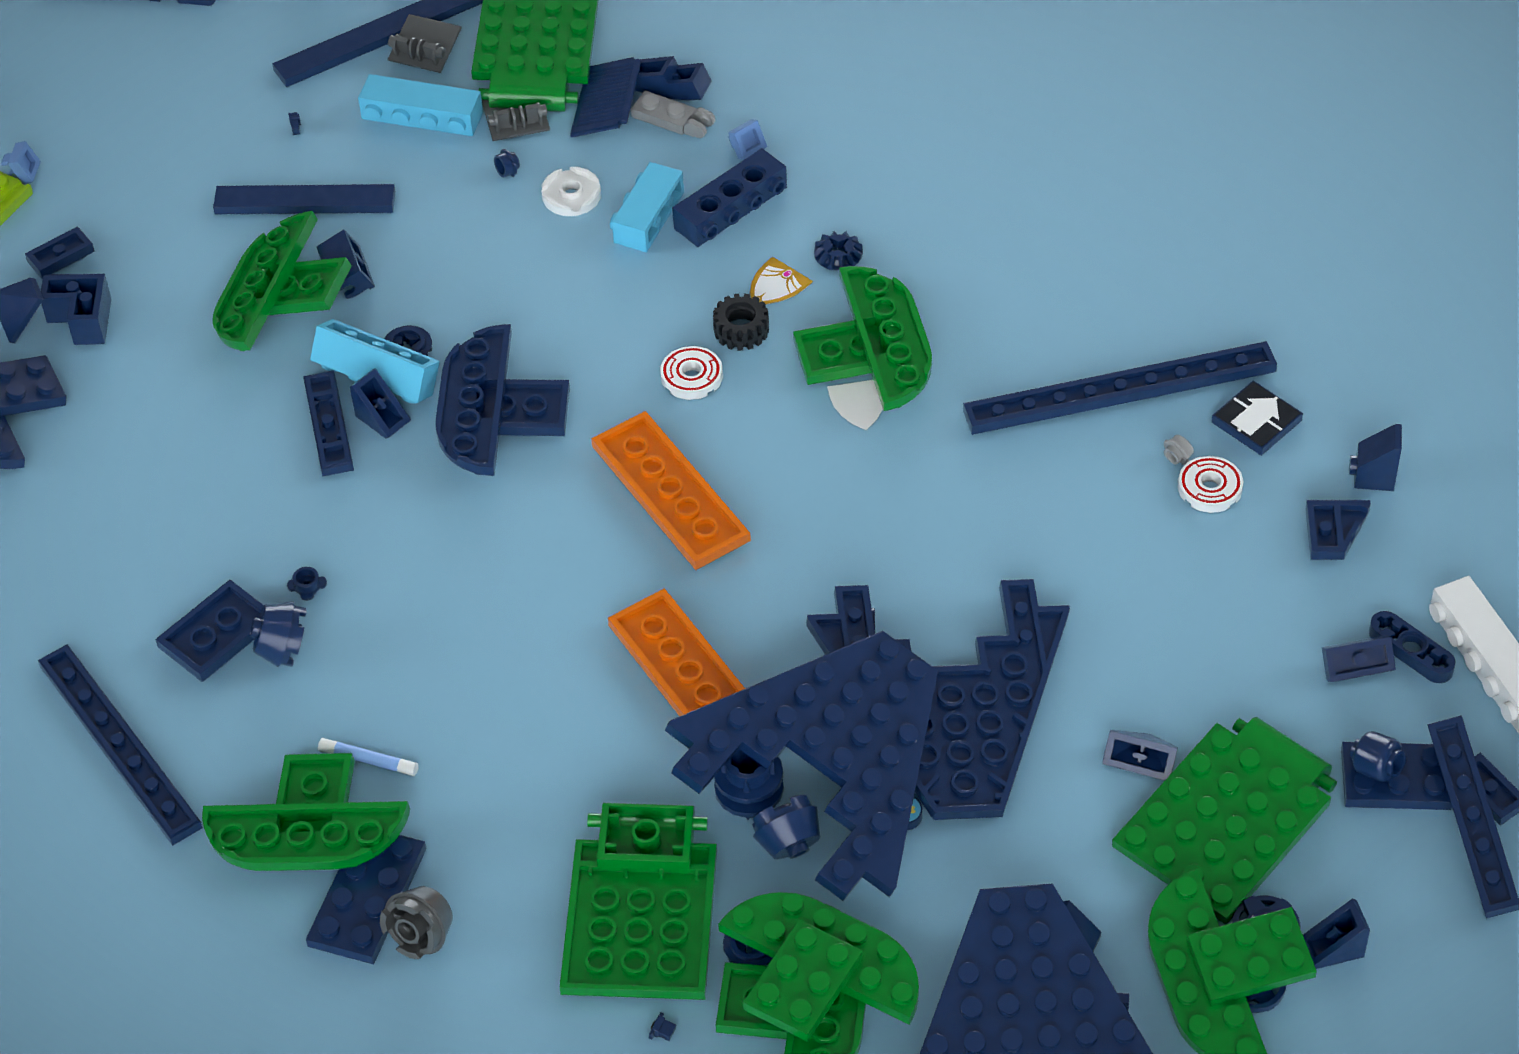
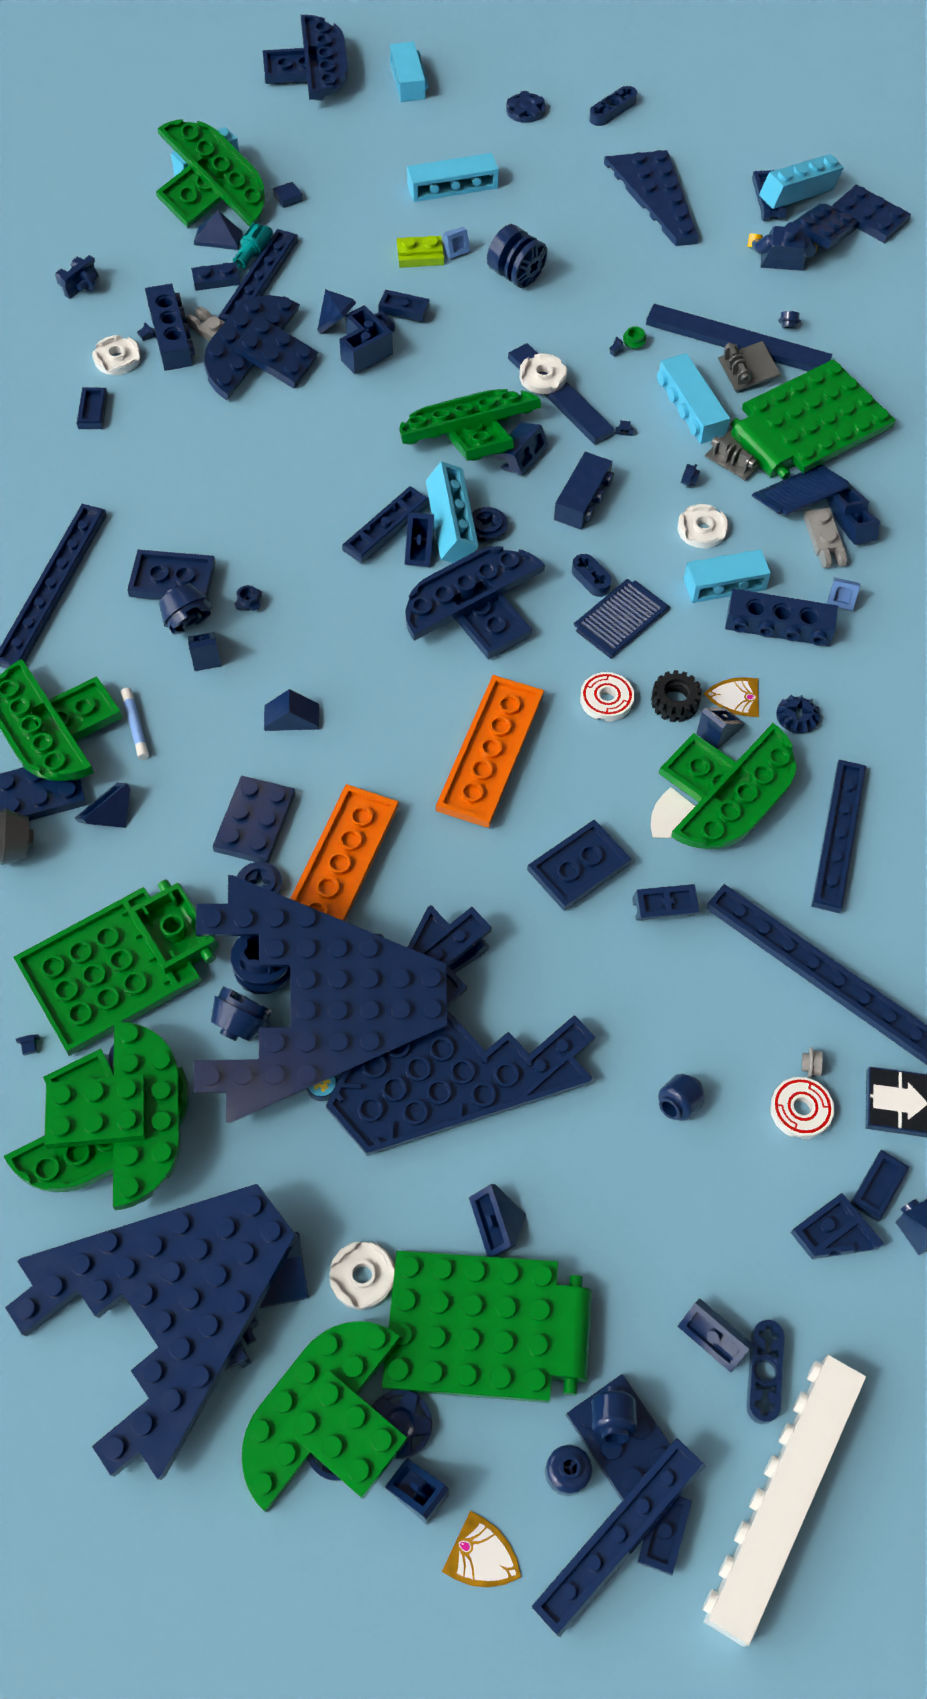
camera: 50 degrees right, 10 degrees up
(105, 123) = (517, 255): none -> dark blue wheel
(276, 207) = (540, 383): none -> white tile
(298, 102) = (634, 337): none -> green plate
(336, 649) = (204, 651): none -> dark blue slope
(398, 177) = (624, 428): none -> dark blue piece
(446, 249) = (583, 490): none -> dark blue brick
(449, 827) = (109, 808): none -> dark blue slope
(479, 622) = (291, 712): none -> dark blue slope
(546, 303) = (594, 573): none -> dark blue beam
(575, 716) = (254, 820): none -> dark blue plate
(612, 312) = (620, 617): none -> dark blue window
(648, 737) = (268, 872): none -> dark blue gear
(801, 312) = (718, 725): none -> dark blue slope
(851, 495) = (579, 864): none -> dark blue plate
(946, 454) = (665, 901): none -> dark blue hinge
(983, 300) = (838, 836): none -> dark blue tile
(1110, 898) = (362, 1295): none -> white tile
(1136, 555) = (681, 1097): none -> dark blue head
(1317, 475) = (879, 1185): none -> dark blue tile
(1396, 821) = (562, 1482): none -> dark blue head
(1417, 931) = (481, 1555): none -> sticker

